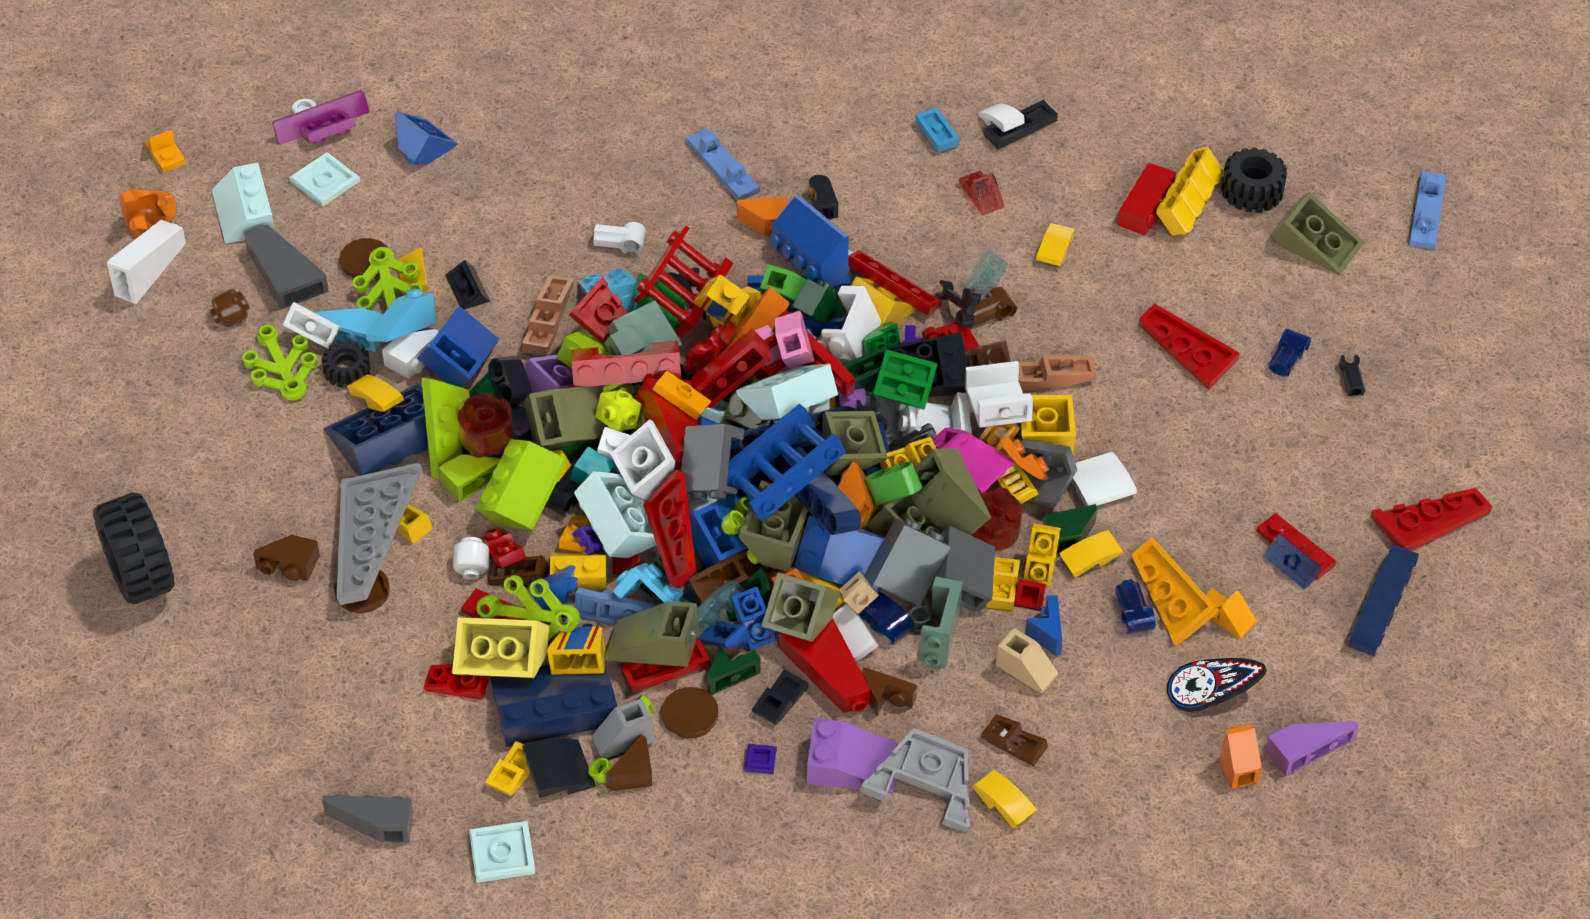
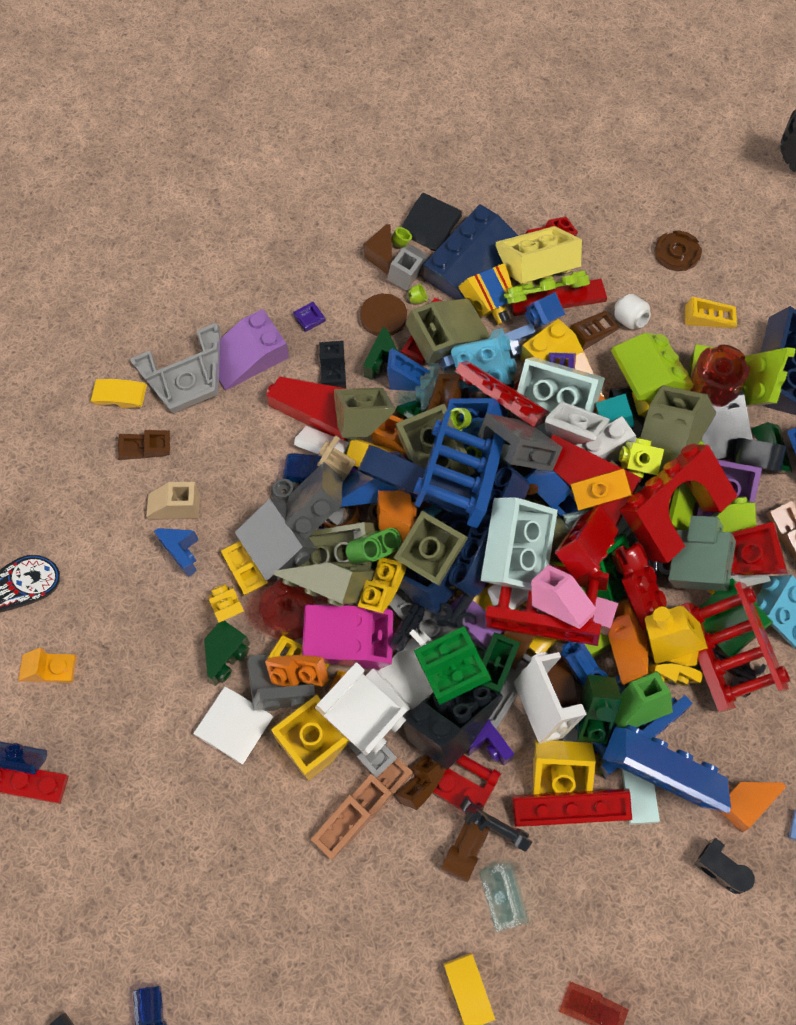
camera: 145 degrees right, 15 degrees up
(294, 553) = (741, 232): reddish brown slope -> none
(368, 521) = (729, 292): light grey wing -> none
(374, 816) = (495, 124): dark grey slope -> none
(502, 547) = (614, 331): red slope -> none
(502, 851) = (414, 159): light aqua tile -> none
(509, 773) = (457, 197): yellow slope -> none
(750, 612) = (401, 390): blue slope -> none
(882, 336) = (519, 707): green slope -> none
(884, 687) = (266, 413): reddish brown slope -> none
(946, 605) = (246, 460): sand green panel -> none
(1030, 595) = (216, 574): red slope -> none
(1091, 551) = (189, 641): yellow slope -> none
(1135, 611) = (119, 611): clear blue piece -> none
(1176, 596) = (91, 647): light orange wing -> none
(1192, 348) = (250, 952): red wing -> none

